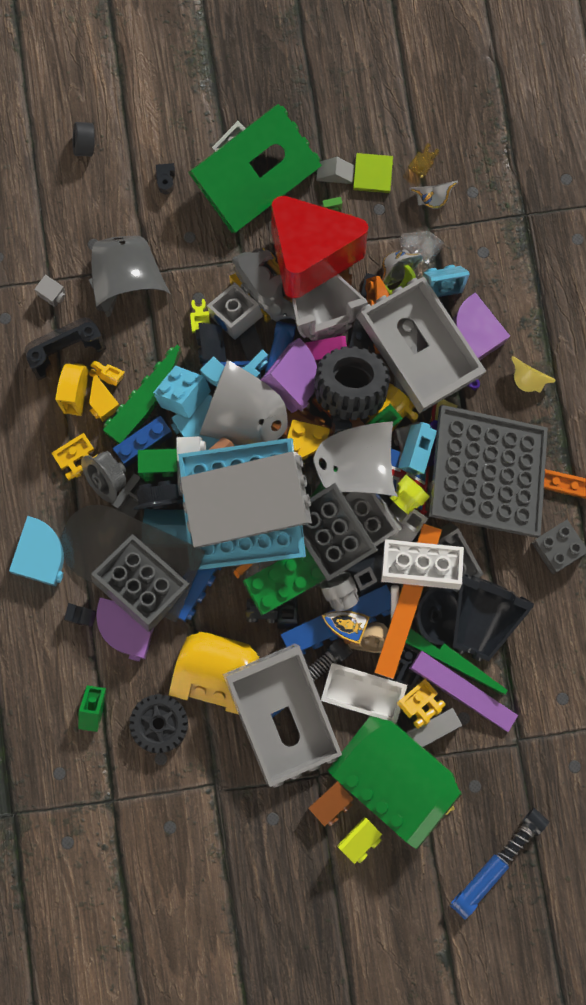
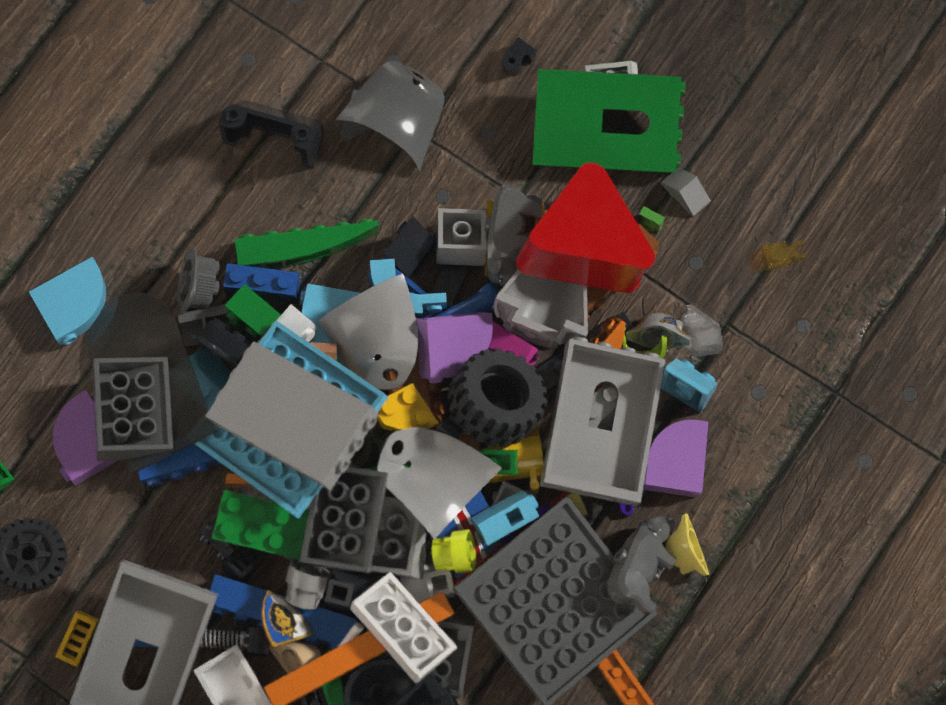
camera: 45 degrees right, 5 degrees down
(50, 291) = (311, 70): light grey brick -> none
(72, 388) = (242, 175): yellow brick -> none
(72, 452) = (188, 235): yellow plate -> none
(80, 615) = (53, 390): black leg -> none
(101, 400) = (261, 211): yellow slope -> none
(108, 374) = (290, 193): yellow plate -> none
(182, 391) = (339, 268): medium azure brick -> none
(199, 316) = (426, 214): neon yellow plate -> none
(202, 667) = (118, 534): yellow piece -> none
(228, 728) = (79, 615): none -> yellow slope
(373, 173) = (721, 223): lime tile -> none
(434, 196) = (758, 295): light grey hat -> none
(514, 406) = (639, 562): none -> dark grey animal

